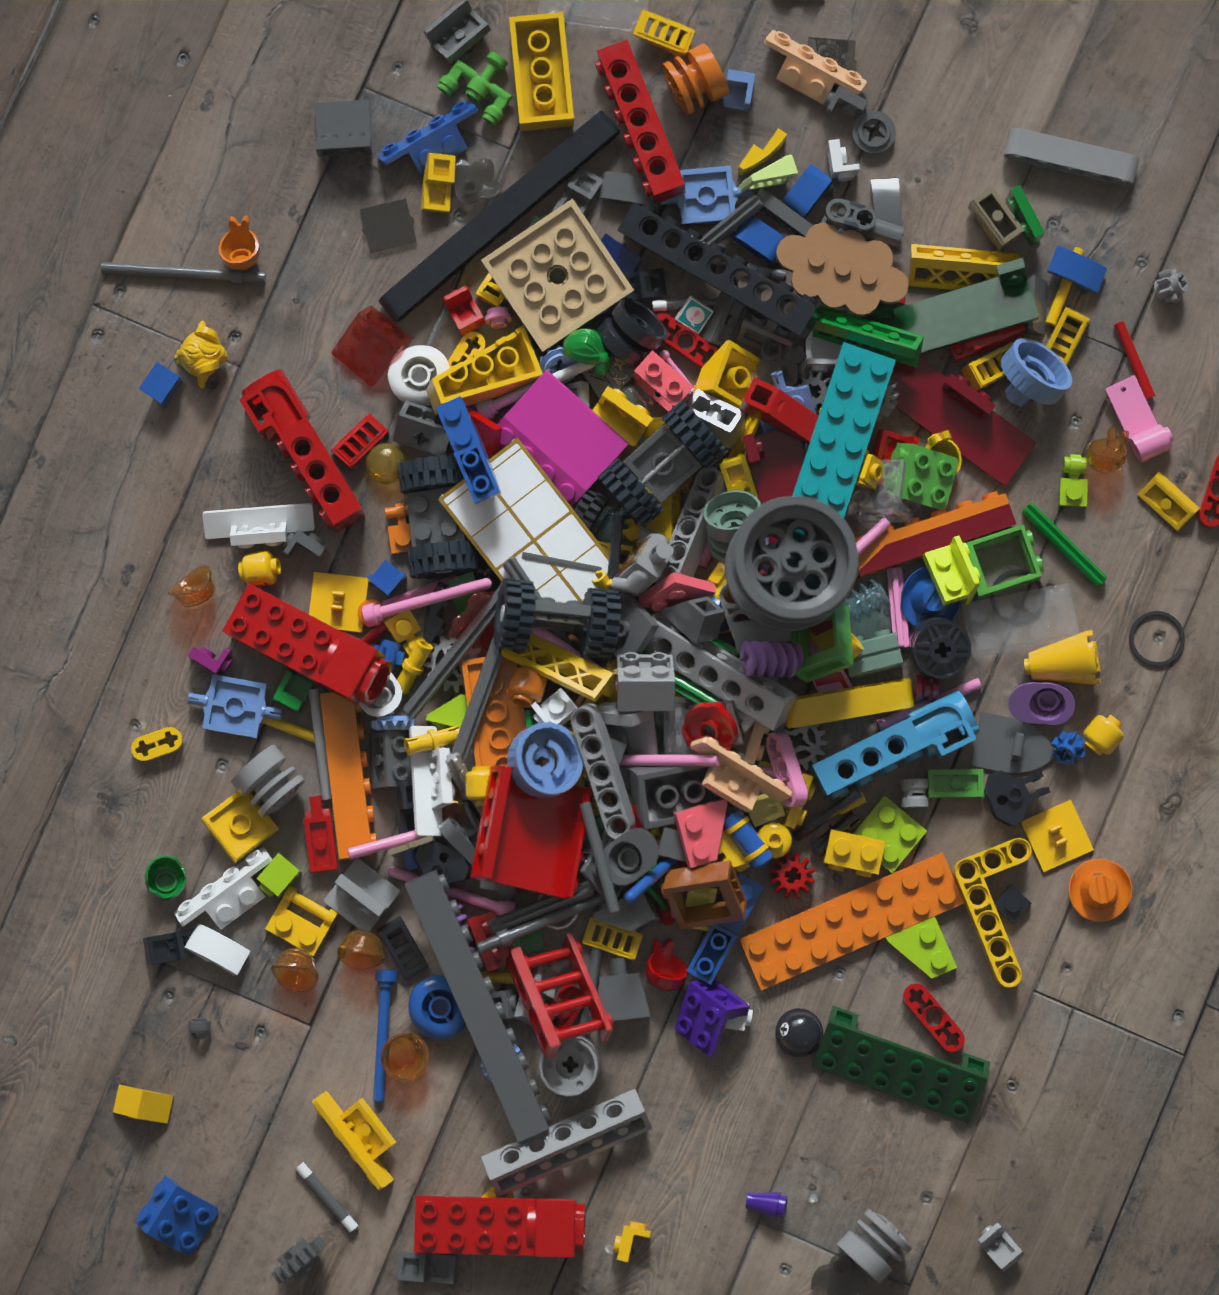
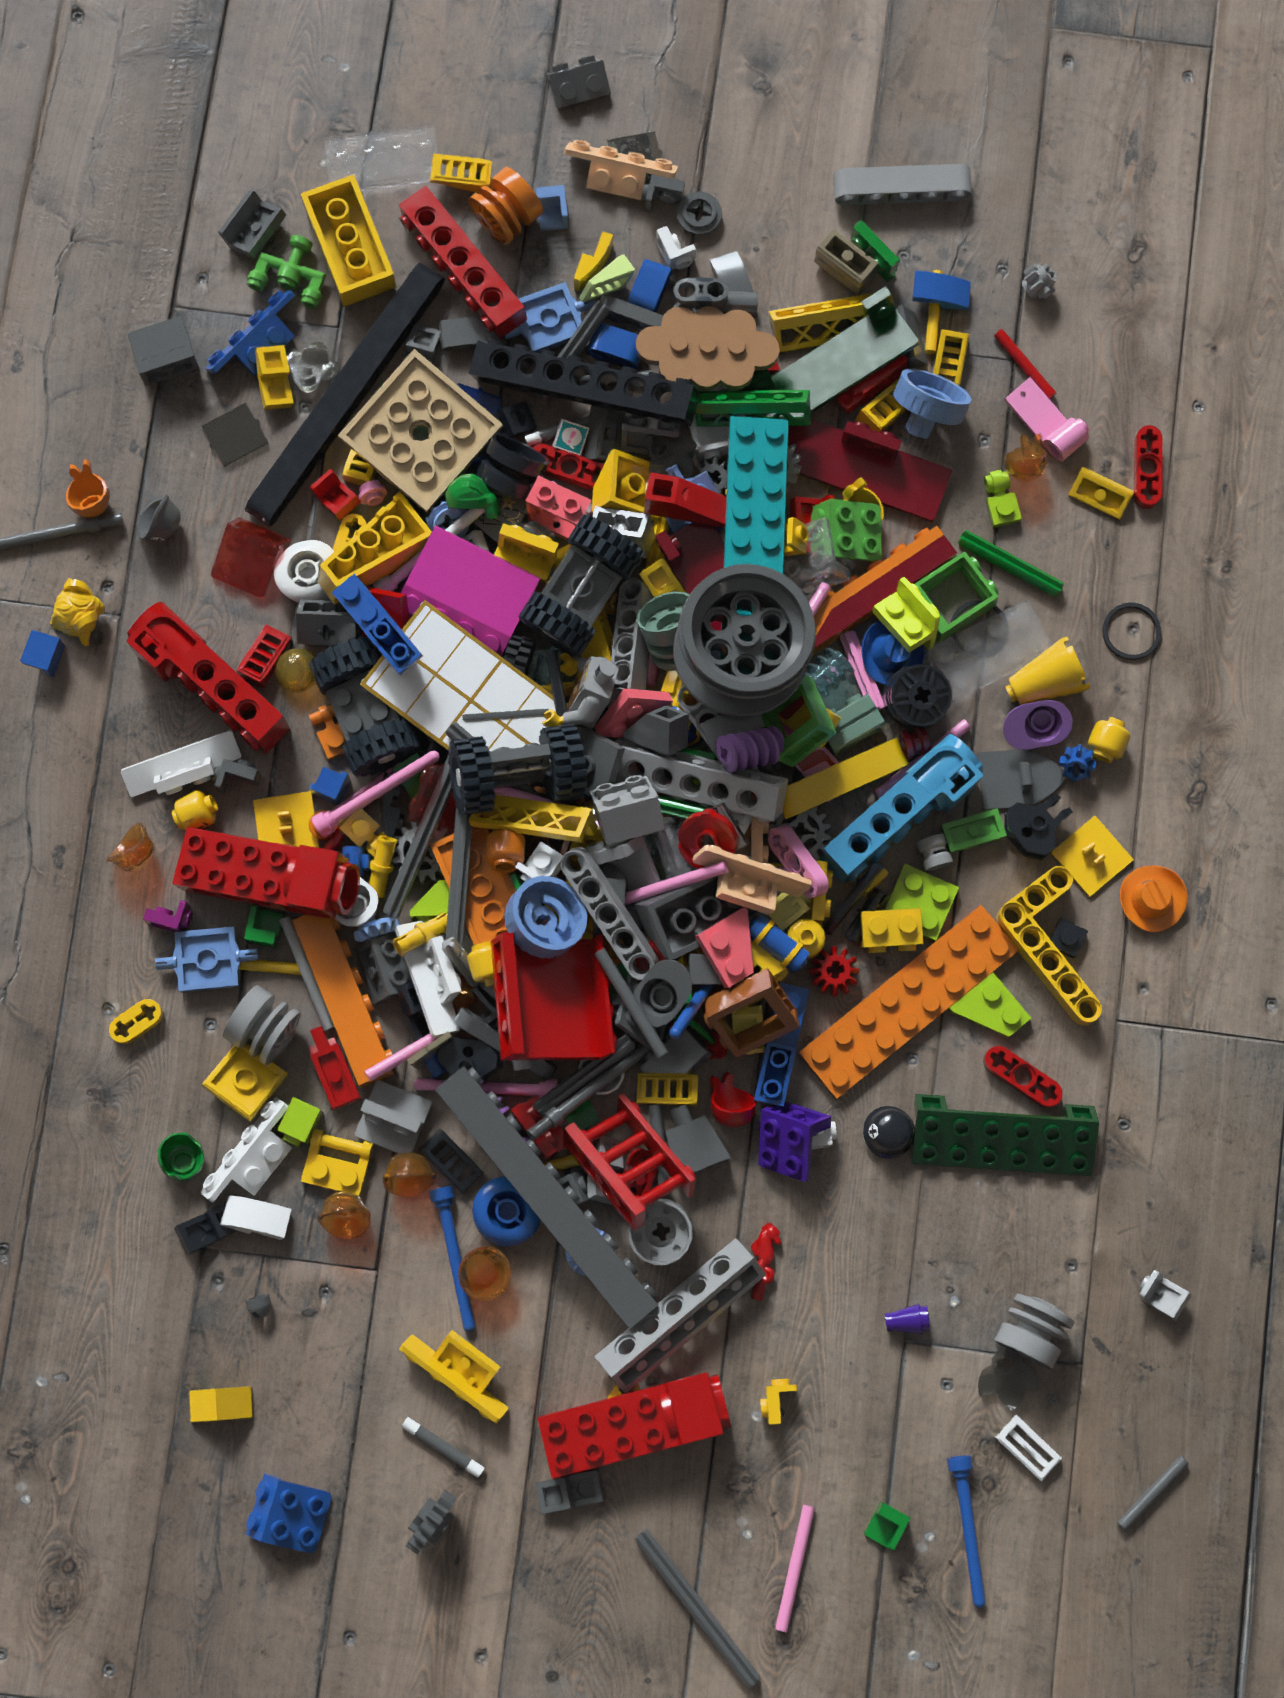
camera: 15 degrees left, 5 degrees down
(297, 289) = (158, 520): none -> dark grey helmet
(657, 1104) = (764, 1249): none -> red animal

